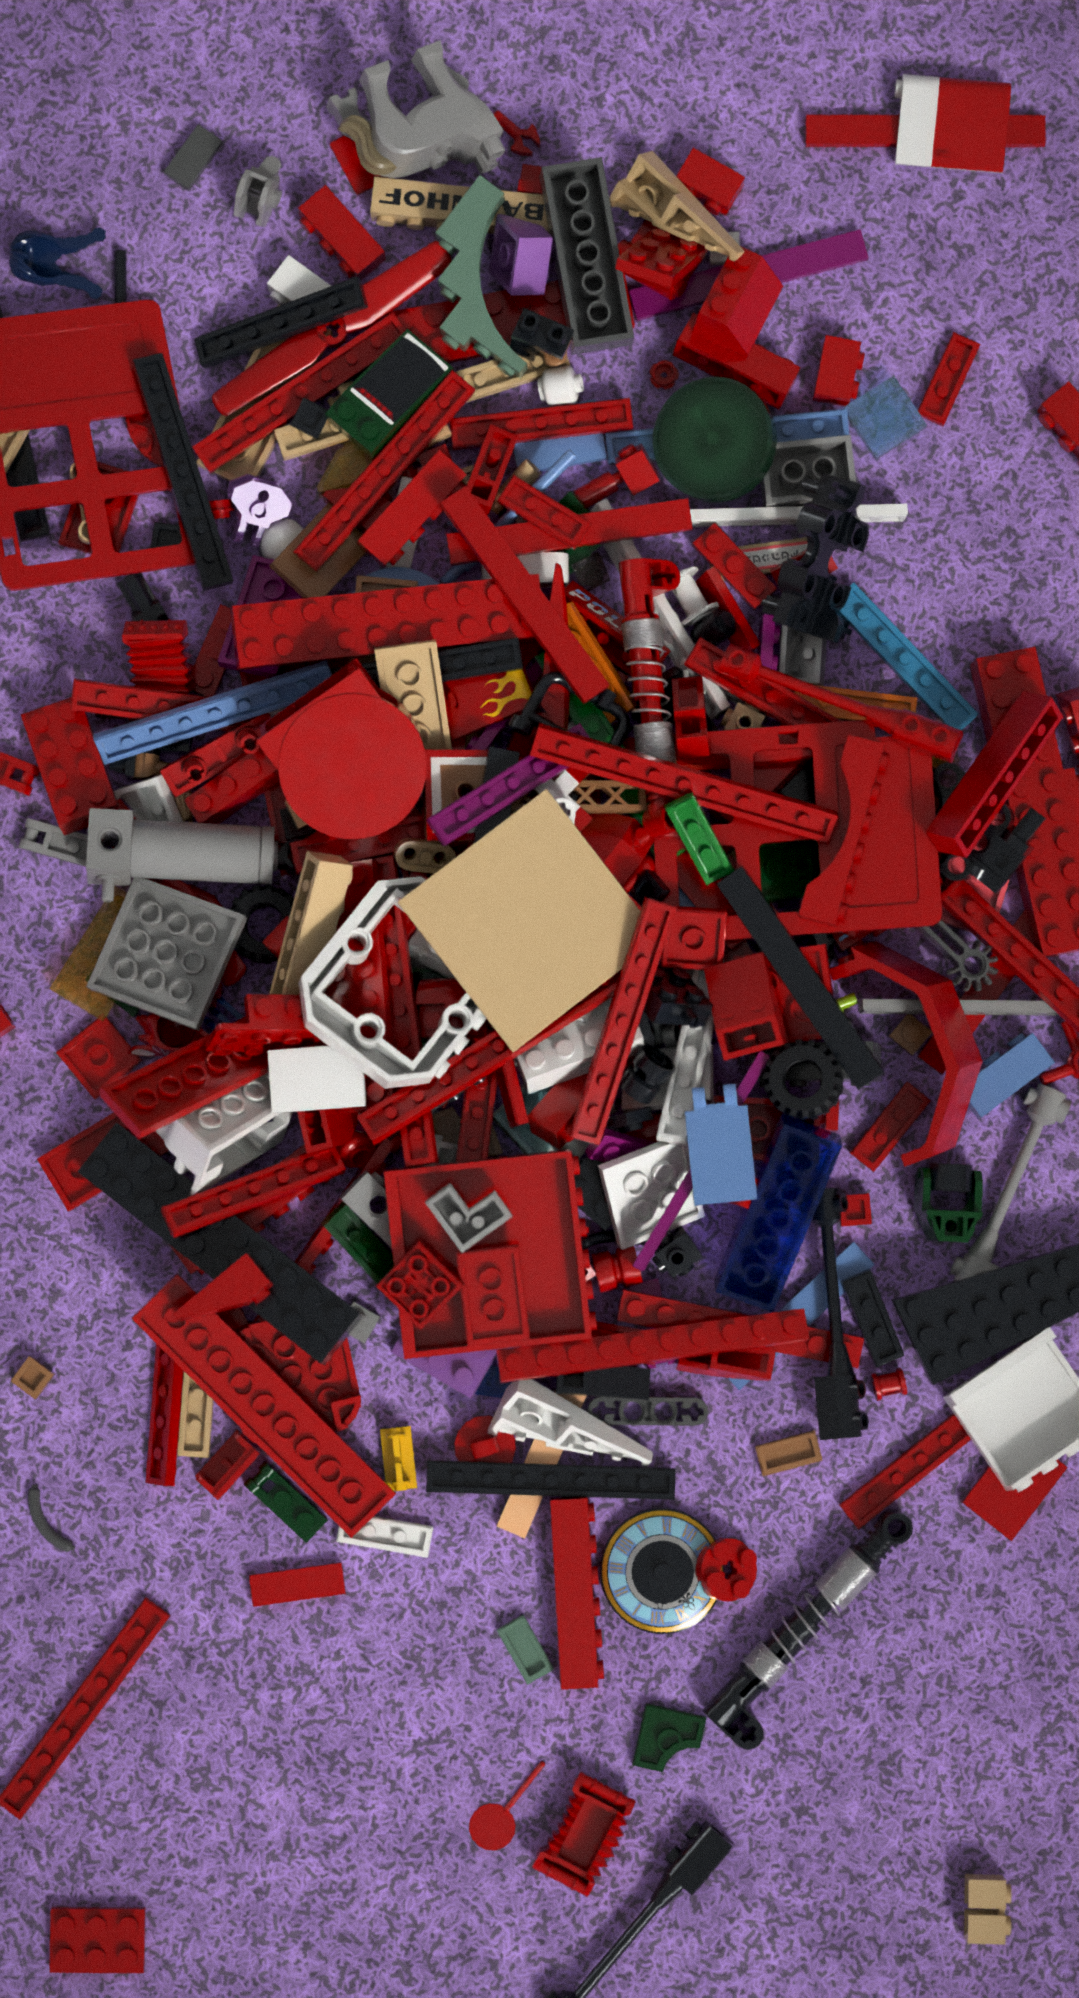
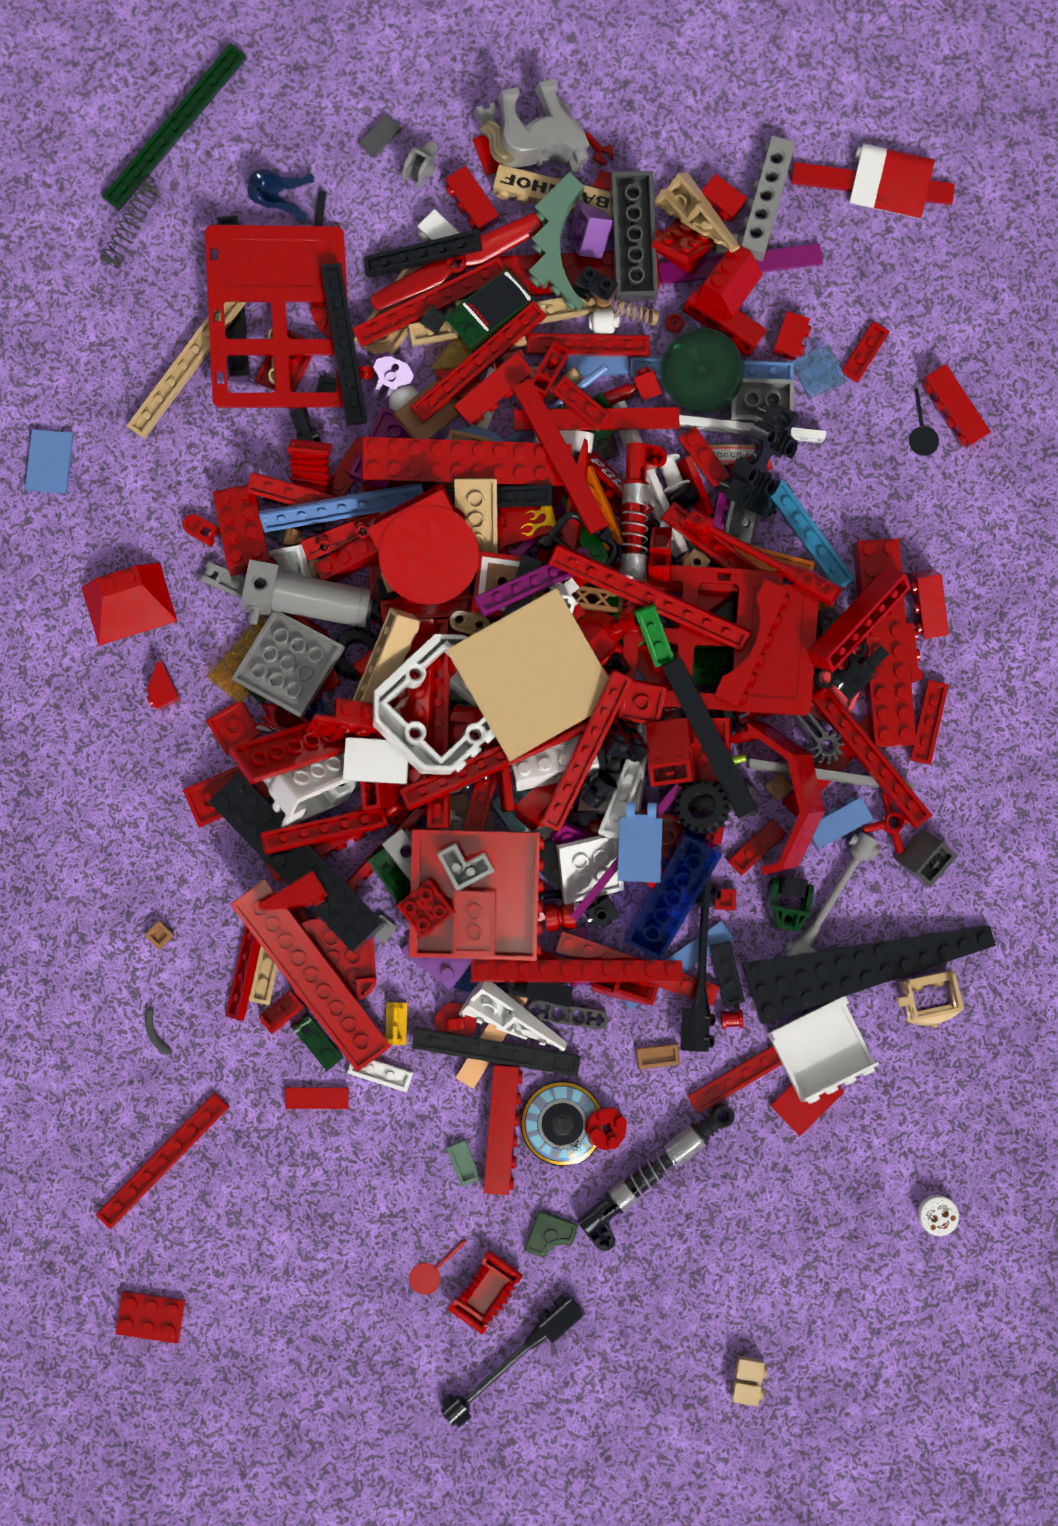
camera: 10 degrees right, 0 degrees up
(635, 368) = (652, 314): none -> tan piece
(784, 100) = (777, 149): none -> light grey brick
(1050, 496) = (923, 439): none -> black piece

